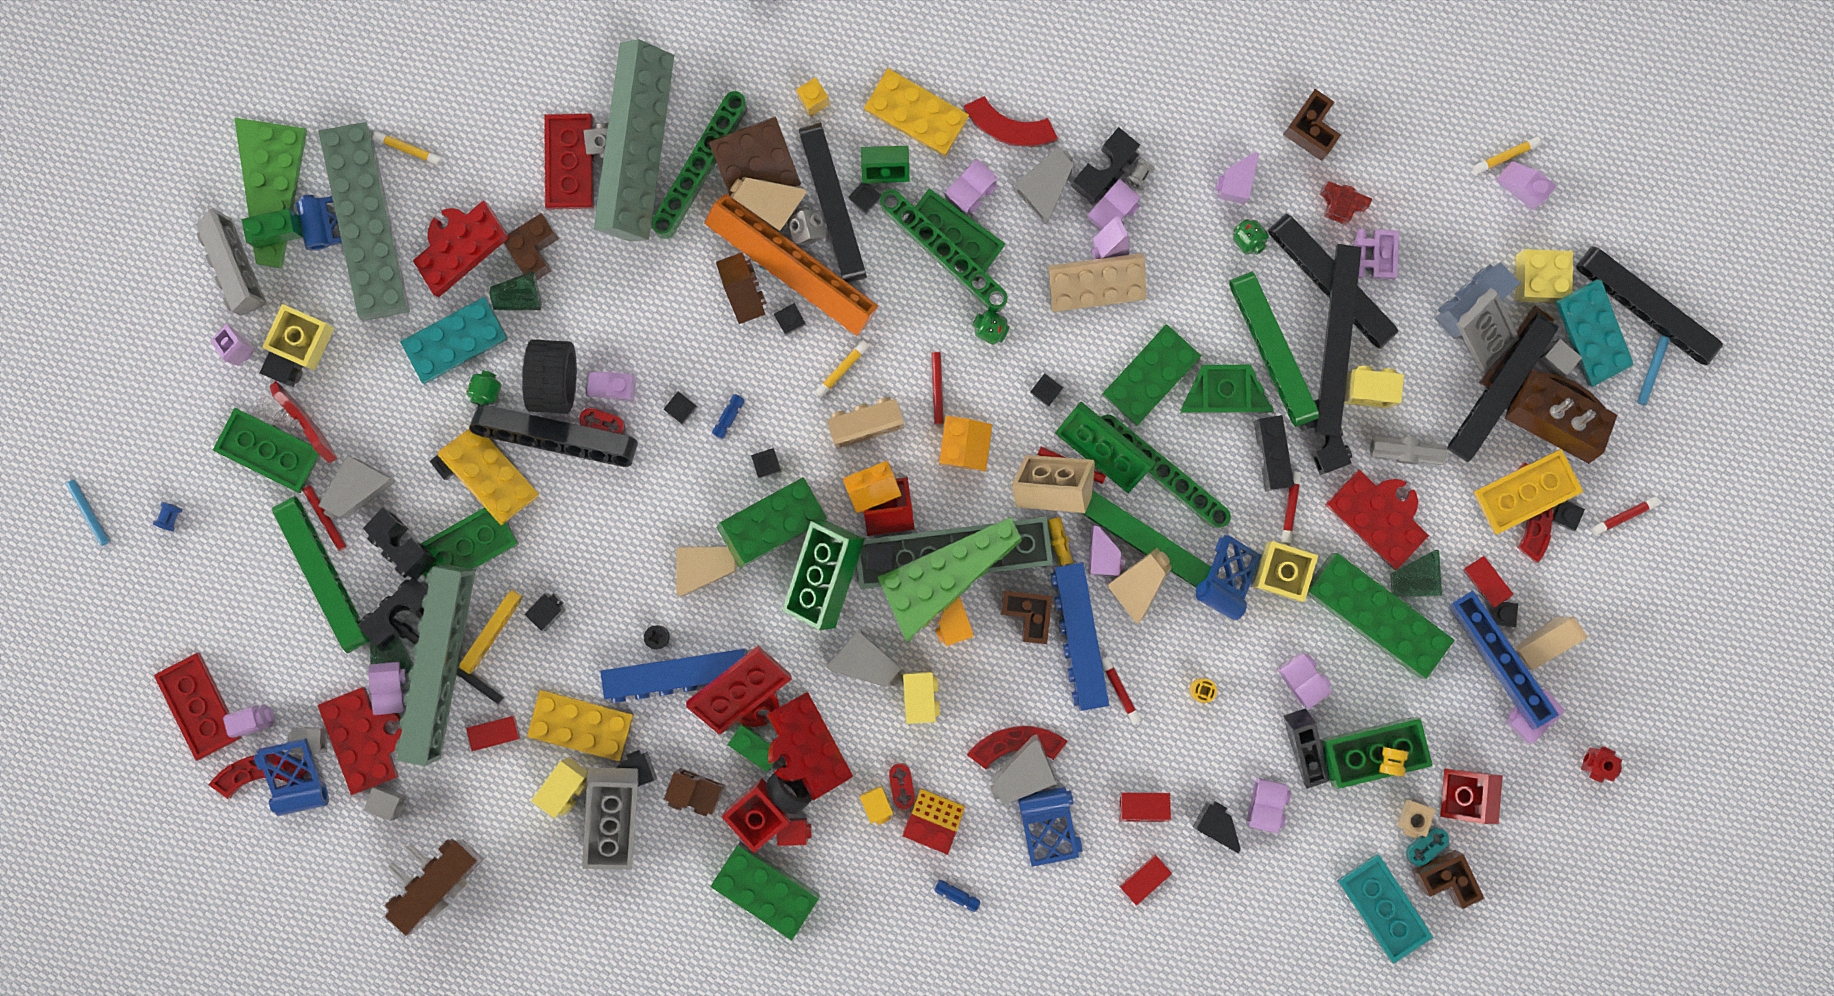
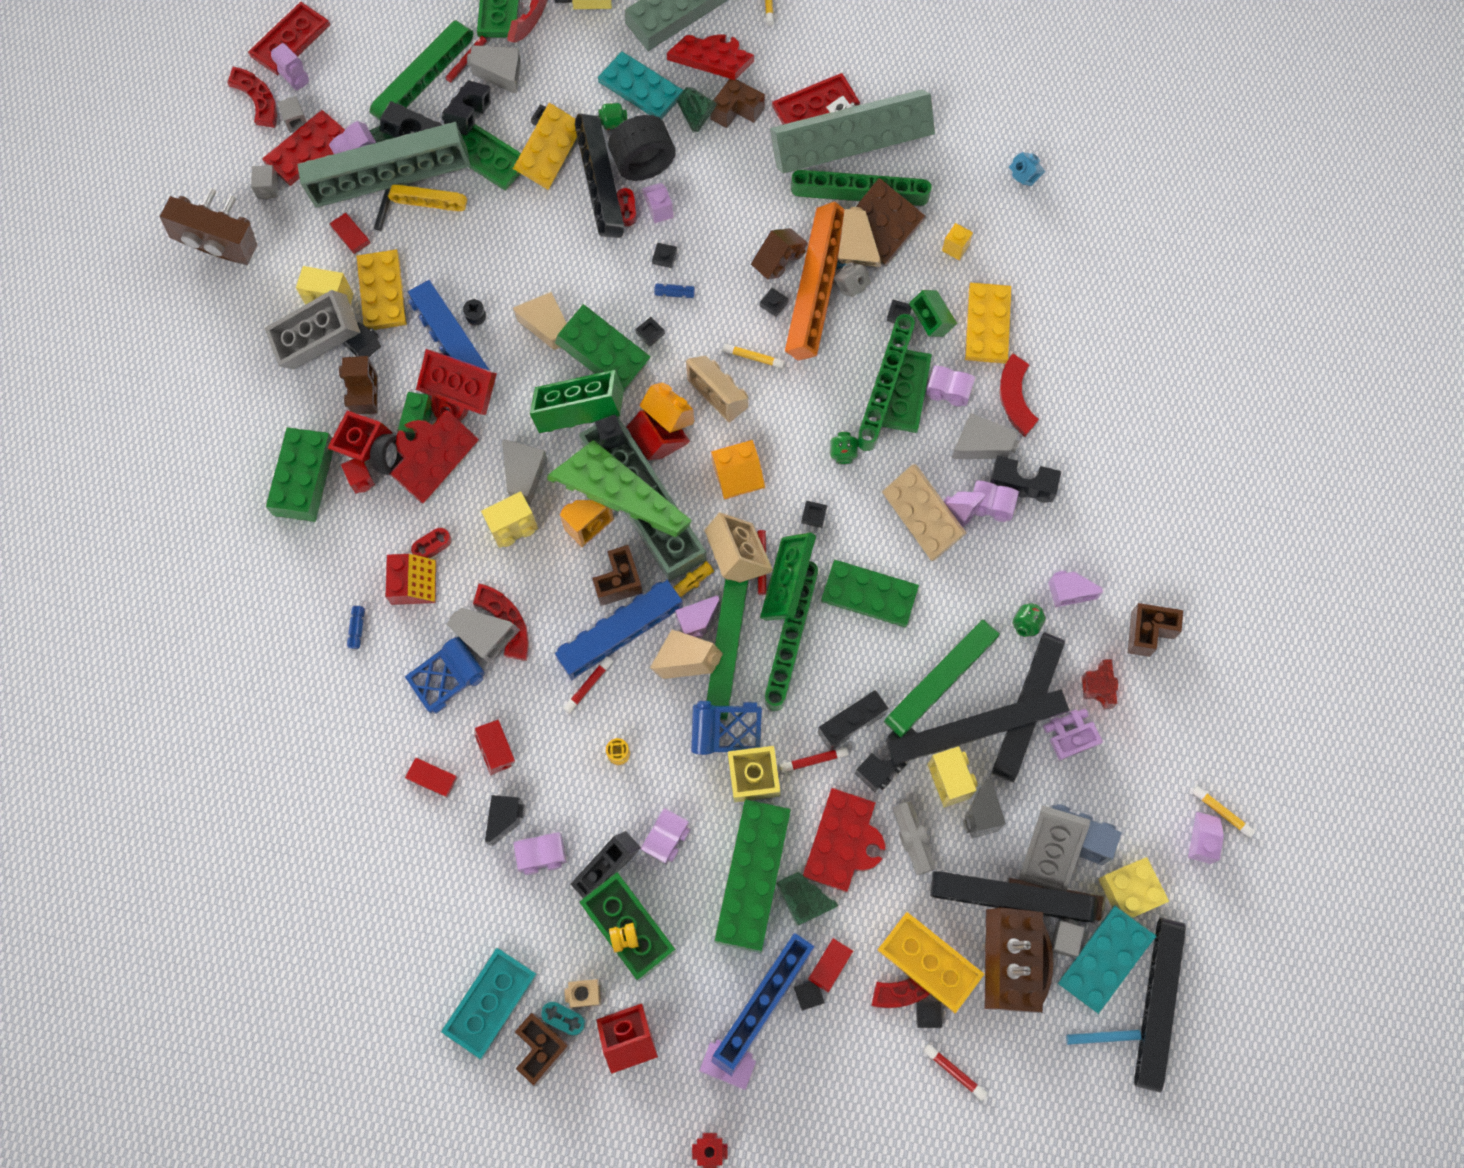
camera: 70 degrees right, 15 degrees down
(293, 796) = (248, 124): blue piece -> none
(545, 611) = (459, 227): black brick -> none
(832, 203) = (881, 291): black beam -> none
(876, 805) = (406, 529): yellow brick -> none
(937, 388) = (777, 430): red bar -> none
(1140, 174) = (1032, 509): light grey bush -> none
(1226, 391) = (887, 659): green wing -> none
(1421, 376) = (984, 812): none -> dark grey slope
(1550, 641) = (799, 1043): tan slope -> none

